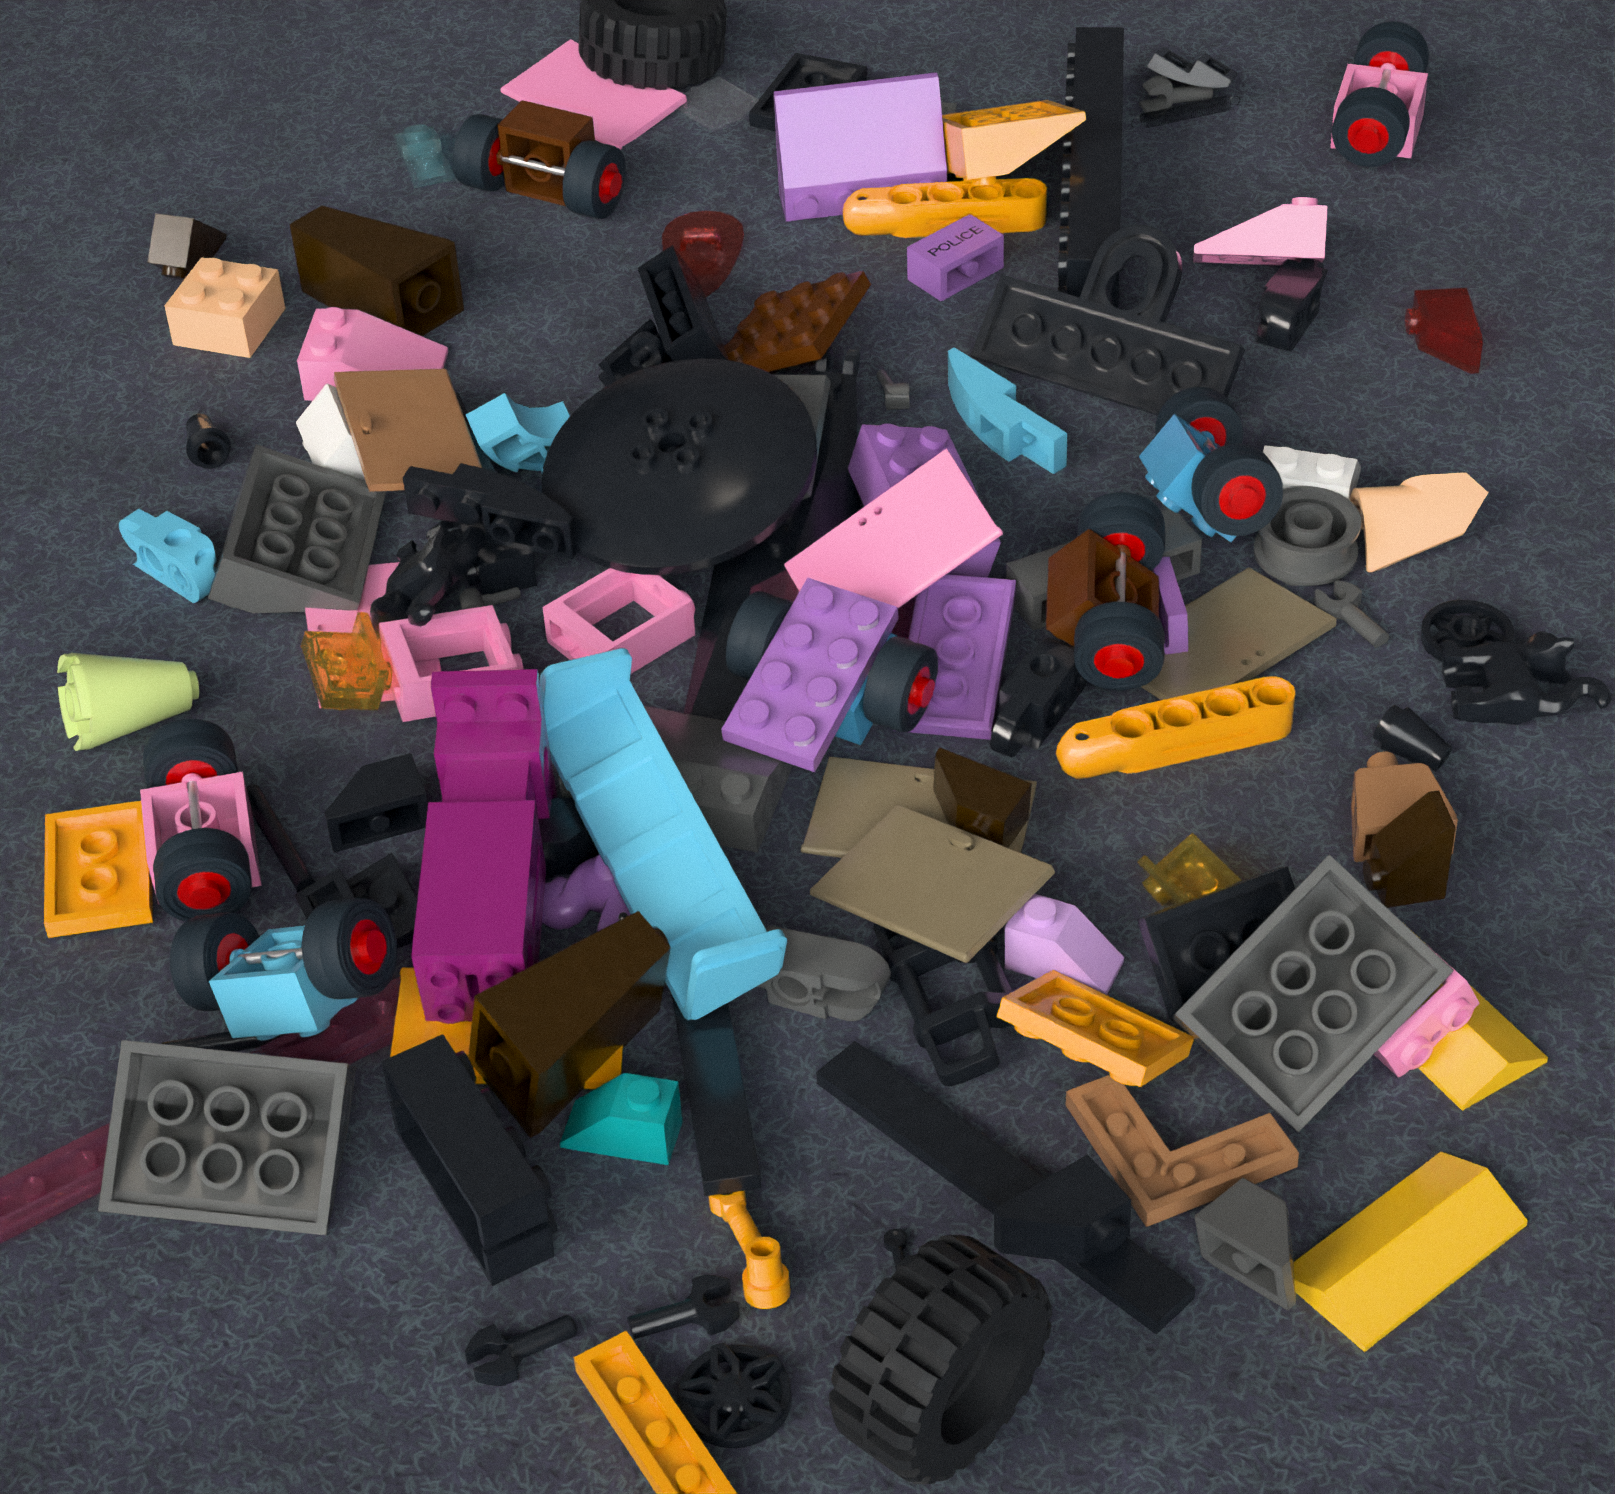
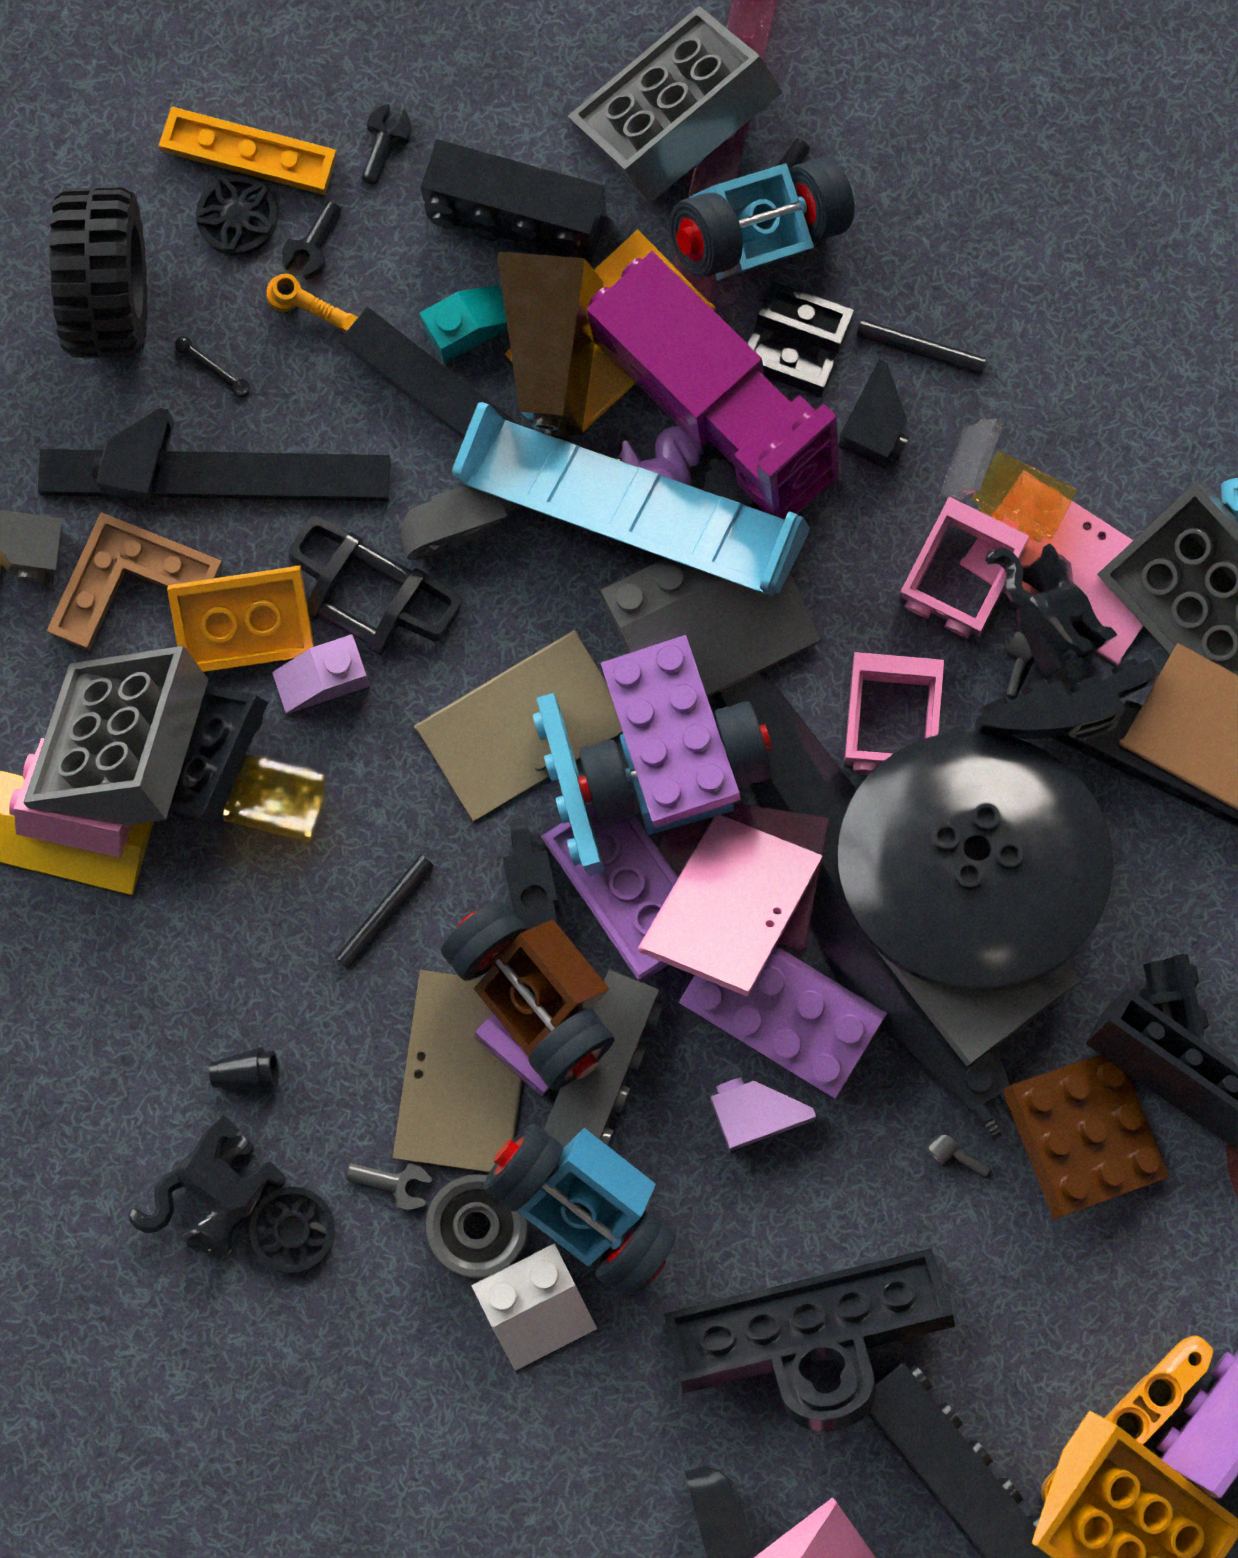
camera: 140 degrees right, 35 degrees up
(96, 870) = (1001, 220): light orange plate -> none
(120, 695) = (1148, 346): yellowish green cone -> none
(197, 821) = (950, 280): brick -> none
(349, 717) = (971, 458): none -> clear piece
(515, 433) = (1157, 836): medium azure brick -> none
(926, 726) = (563, 767): none -> medium azure plate
(932, 882) = (443, 639): dark tan container -> none
(955, 257) = (1058, 1362): medium lavender brick -> none
(981, 798) = (475, 744): dark brown slope -> none
(998, 420) = (856, 1186): medium azure slope -> none
(1013, 476) = (755, 1112): none -> lavender slope
(1179, 772) = (384, 911): none -> black bar
(1180, 729) = (439, 876): light orange piece -> none
(1383, 794) = (202, 985): medium nougat torso -> none
(1412, 854) = (153, 931): dark brown slope -> none
(1415, 515) = (417, 1321): light nougat panel -> none

